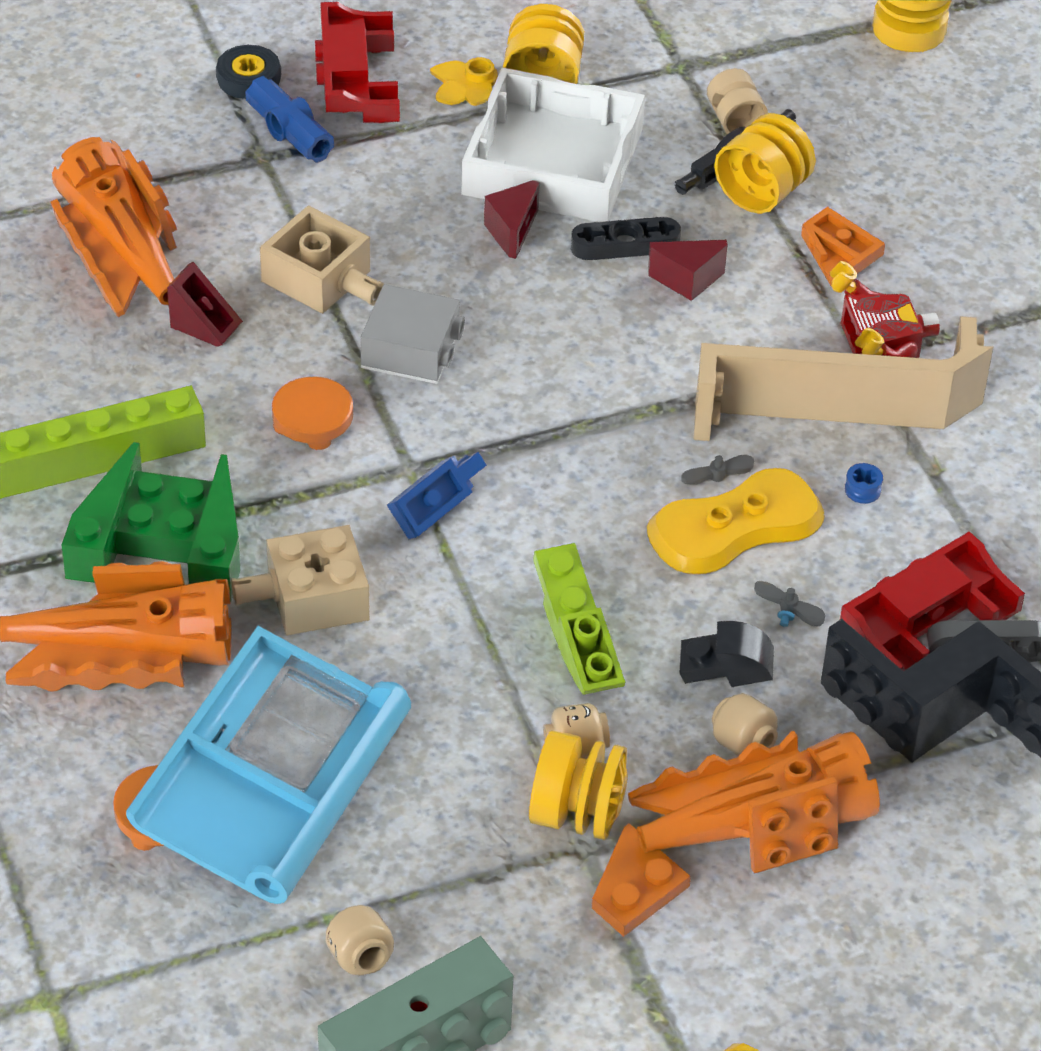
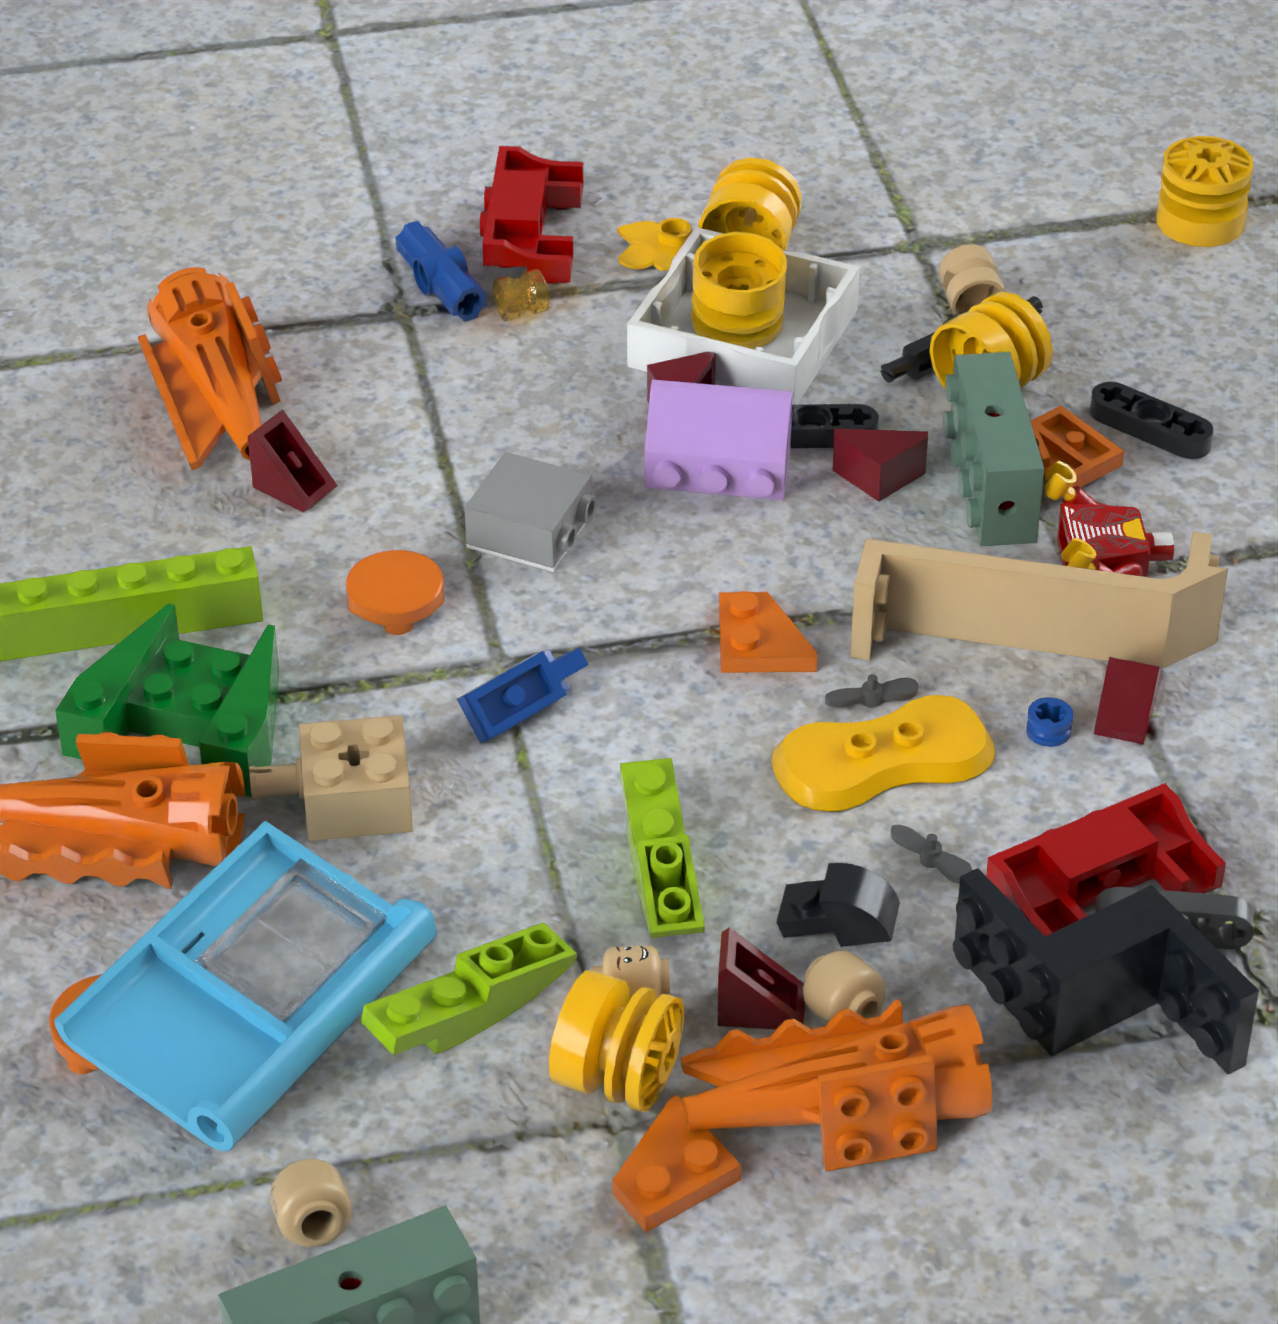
camera: 10 degrees right, 5 degrees down
(242, 65) = (399, 207): black bush -> none
(319, 261) = (435, 422): tan brick -> none
(362, 137) = (522, 294): none -> clear yellow wheel
(454, 754) = (480, 992): none -> lime slope
(549, 123) = (739, 289): none -> yellow wheel
(556, 259) = (718, 439): none -> lavender slope
(618, 427) = (760, 636): none -> orange wing
(674, 730) = (754, 987): none -> dark red slope
(783, 251) = (994, 449): none -> sand green brick
(785, 617) = (923, 869): dark azure piece -> none
(867, 202) = (1177, 433): none -> black beam
(923, 460) = (1127, 700): none -> dark red slope

